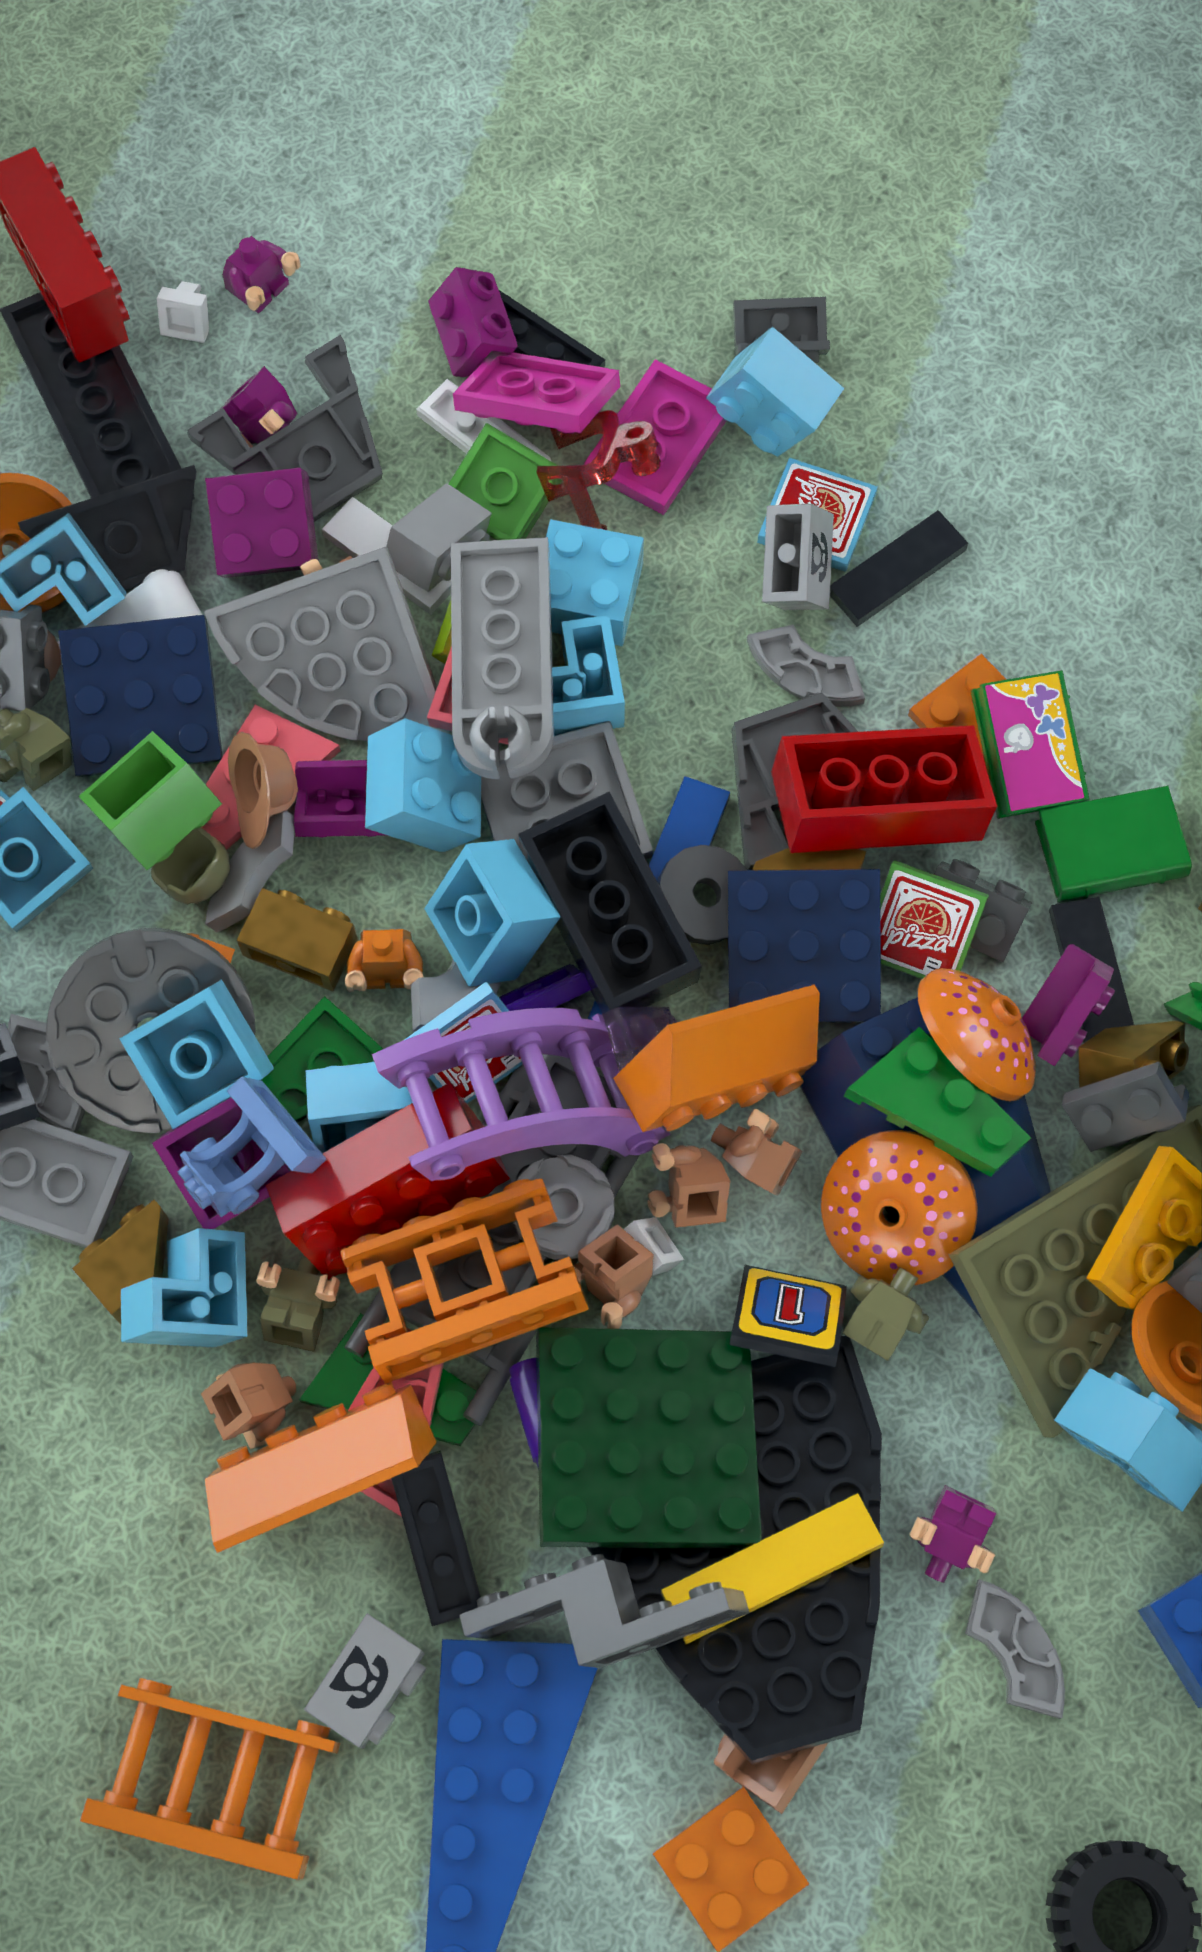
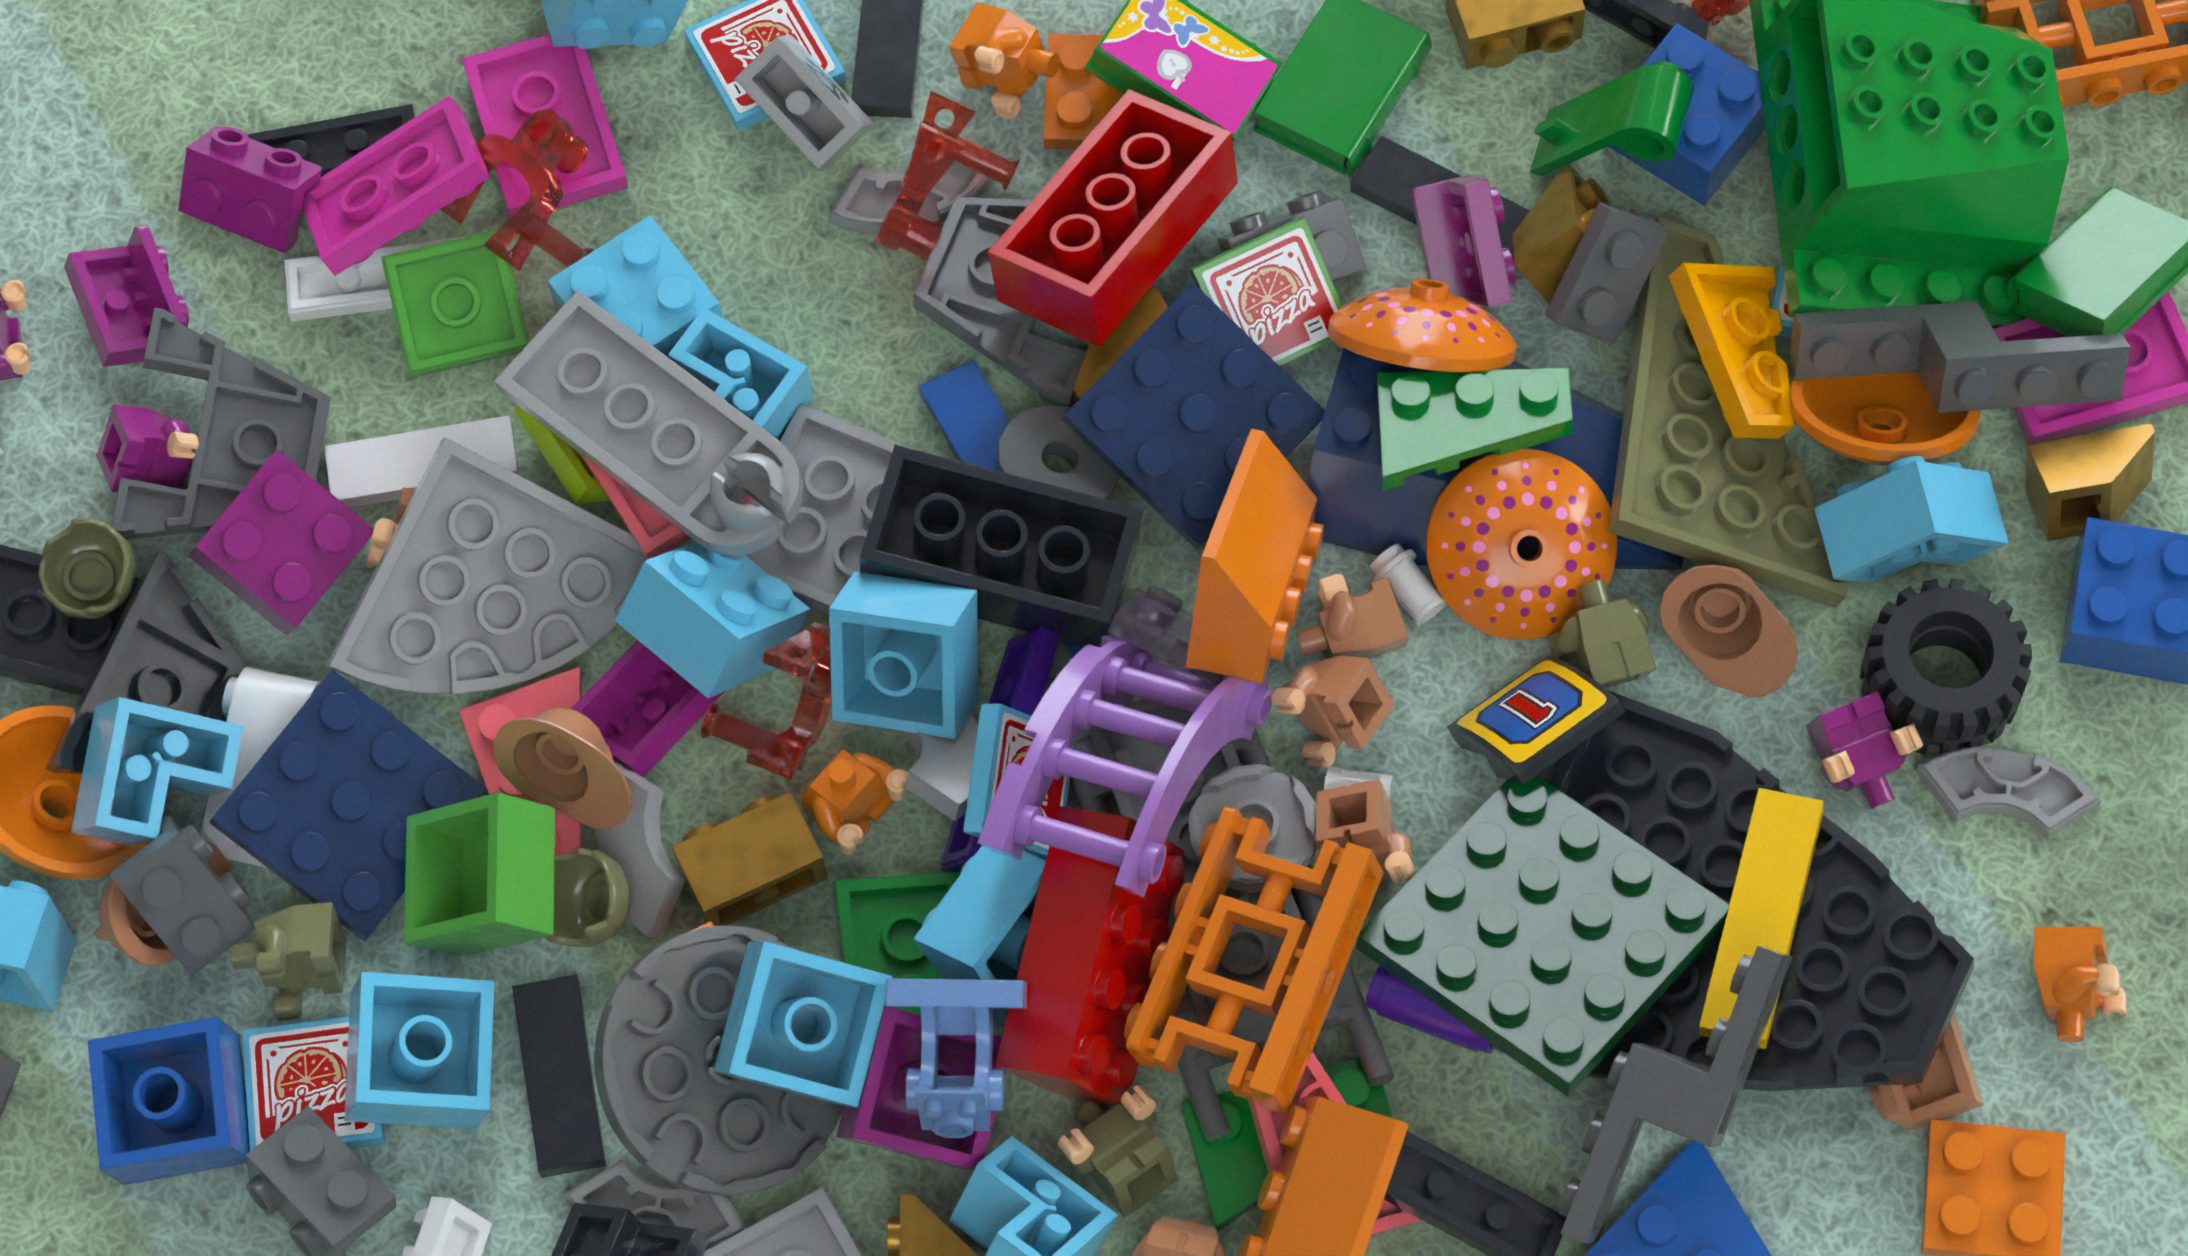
camera: 45 degrees left, 5 degrees down
(108, 913) = (559, 1076): none -> black tile
(154, 440) = (87, 569): none -> olive hair
(350, 311) = (119, 294): none -> magenta bracket
(395, 900) = (788, 750): none -> clear red piece
(424, 536) = (458, 393): light grey brick -> none
(799, 660) = (931, 157): none -> clear red piece
(815, 1161) = (1408, 584): none -> white pin
(915, 1801) = (2073, 979): none -> orange piece
(939, 635) = (1002, 53): none -> orange piece
(961, 1382) = (1729, 630): none -> nougat piece
(1098, 1521) = (1958, 621): none -> black tyre

